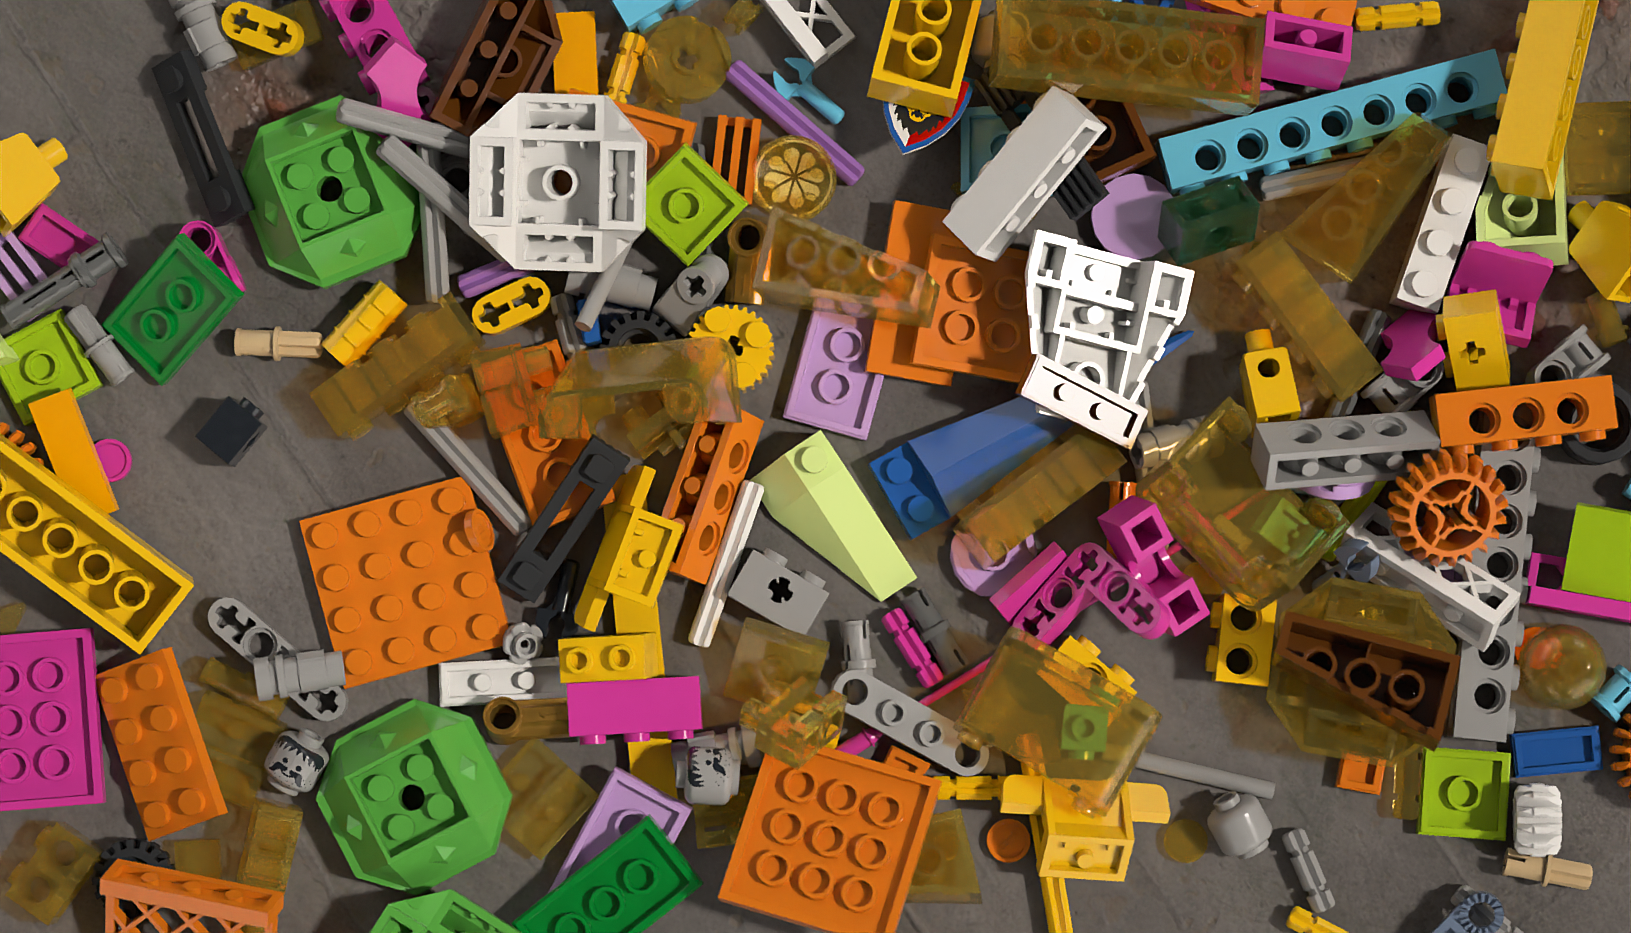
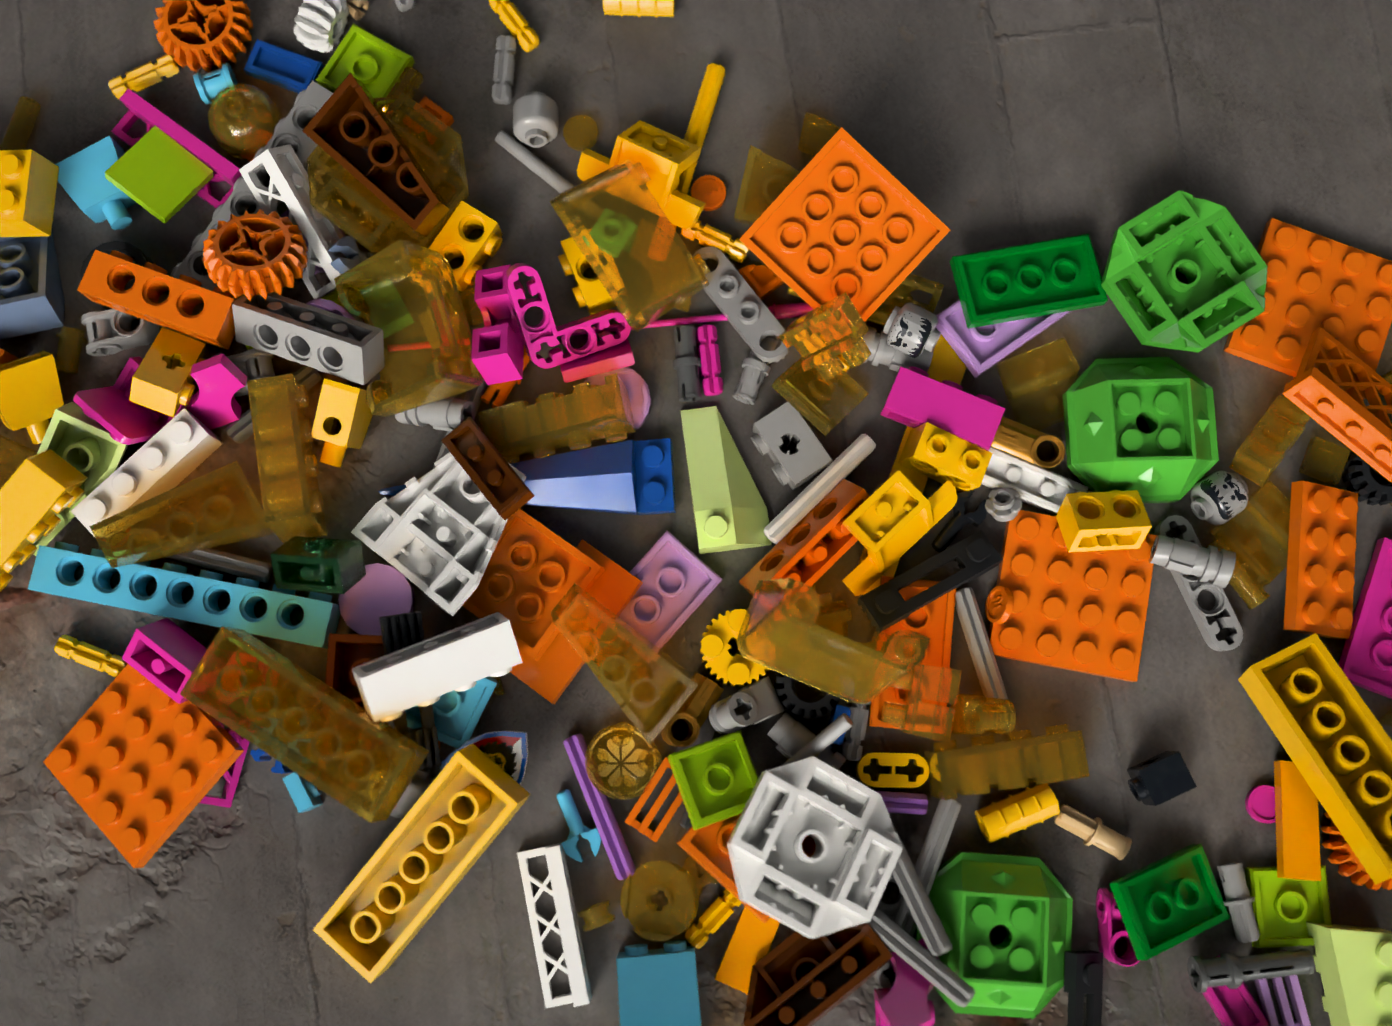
camera: 160 degrees left, 5 degrees down
(404, 661) = (1103, 521): none -> yellow brick

